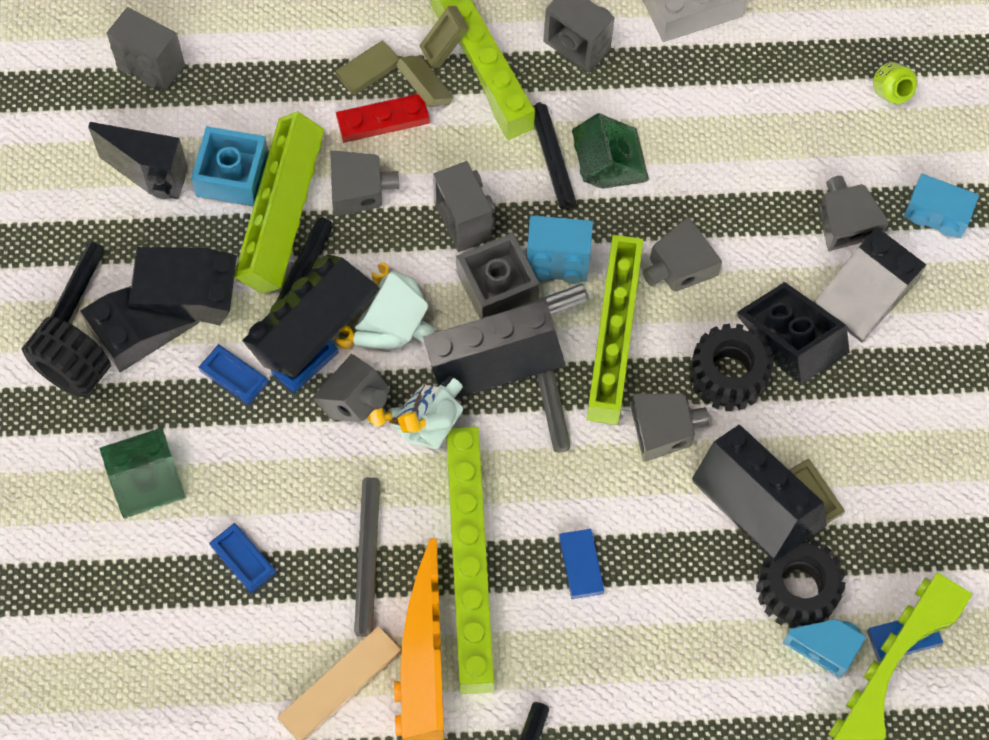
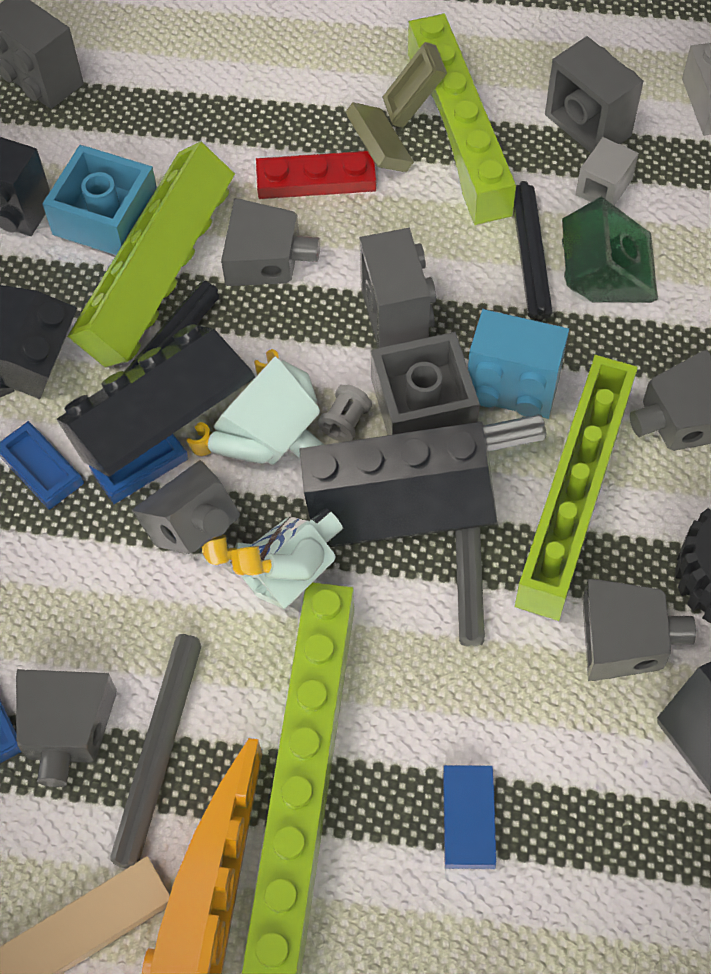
camera: 15 degrees right, 5 degrees down
(299, 548) = (61, 719): none -> dark grey torso
(367, 68) = (309, 114): olive tile -> none
(442, 312) = (360, 405): none -> light grey bush
(597, 87) = (606, 172): none -> light grey brick

